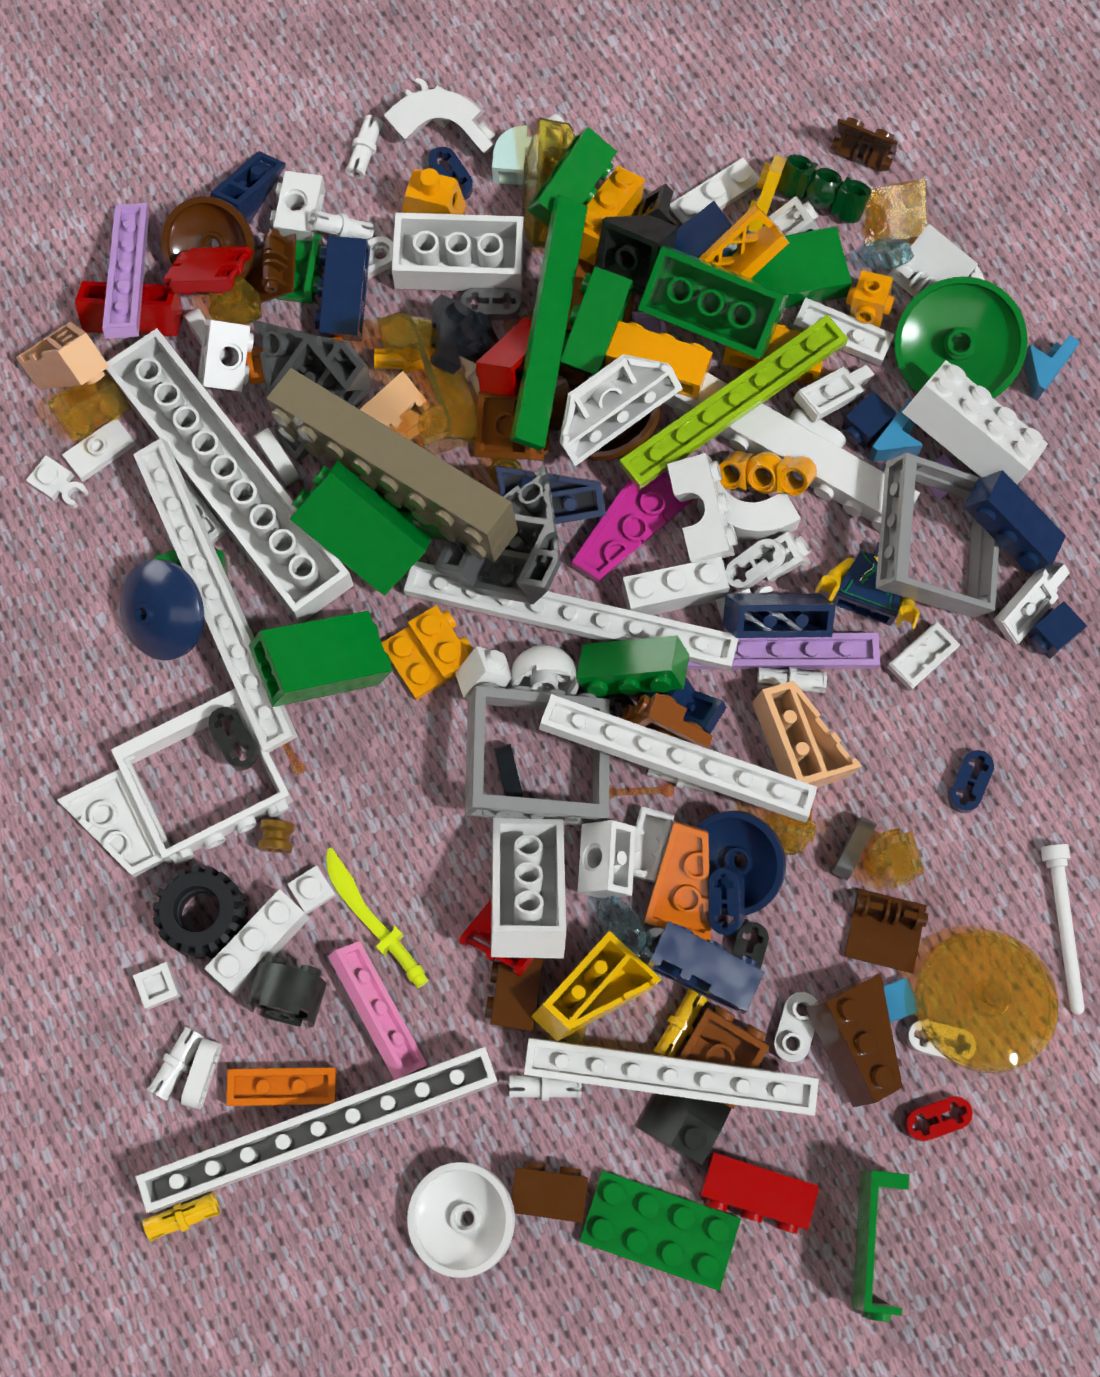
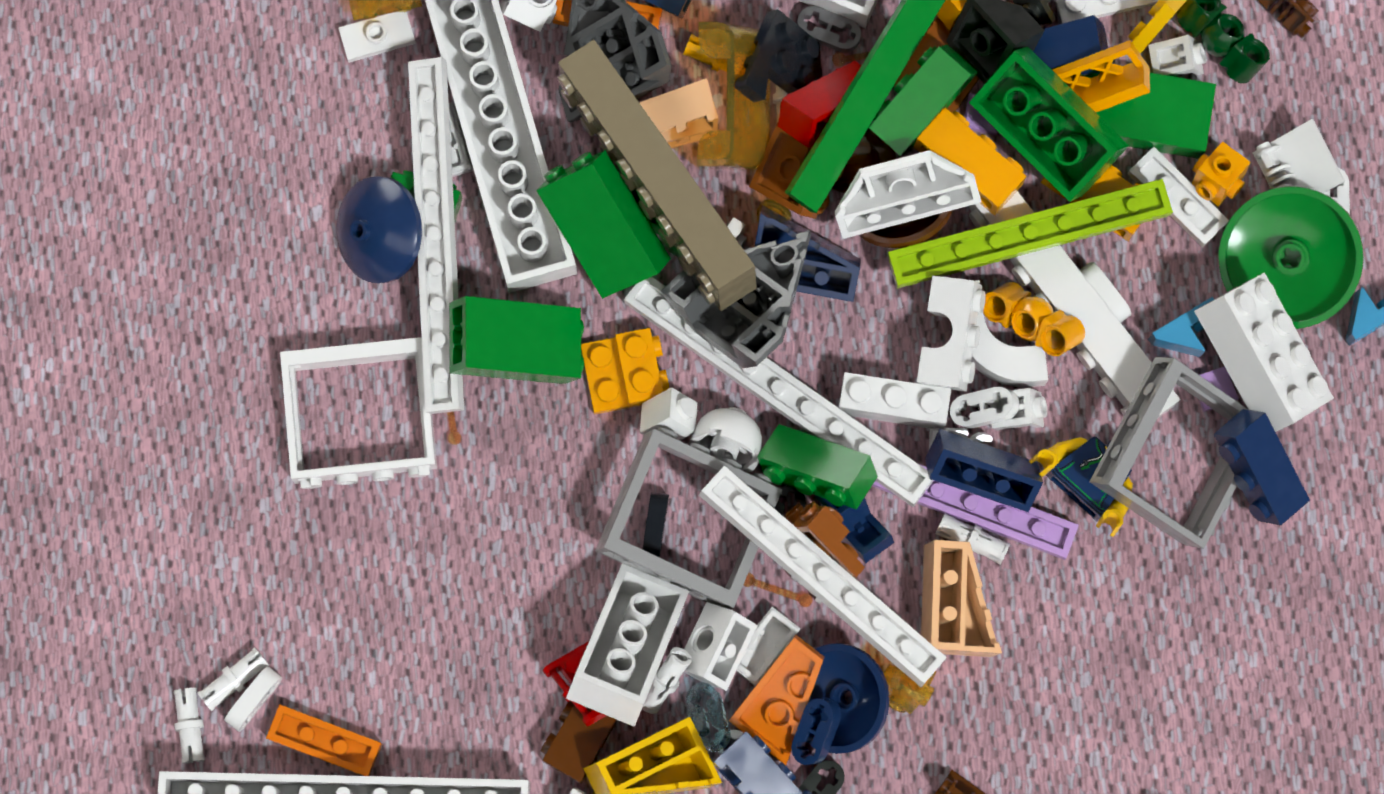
camera: 20 degrees right, 5 degrees up
(54, 479) = (319, 51): white plate -> none
(115, 822) = (259, 423): white wing -> none
(150, 1122) = (189, 725): none -> white pin
(156, 986) = (241, 598): white plate -> none
(179, 892) = (295, 516): black tyre -> none
(226, 742) = (392, 387): pearl dark grey beam -> none
(260, 937) = (351, 595): white brick -> none
(276, 457) = (550, 112): white beam -> none
(276, 836) = (407, 498): pearl gold wheel -> none
(286, 992) = (361, 653): pearl dark grey brick -> none
(311, 889) = (422, 563): white plate -> none
(377, 1010) = (441, 704): bright pink plate -> none
(389, 940) = (457, 577): neon yellow sword -> none
(575, 904) = (667, 679): none -> white pin
(627, 525) = (872, 318): dark pink wing -> none
(832, 392) = (1138, 259): white hinge -> none
(854, 848) = (963, 729): flat silver beam -> none
(867, 421) = (1161, 302): dark blue brick -> none
(888, 253) = (1258, 132): clear light blue beam -> none
(893, 860) = (993, 756): clear yellow brick -> none
(897, 211) = (1288, 89): clear yellow hinge -> none
(923, 656) = (1115, 565): white plate -> none
(978, 784) = (1114, 715): dark blue beam -> none
(1031, 602) = (1247, 553): white hinge -> none
(1056, 630) = (1258, 592): dark blue brick -> none

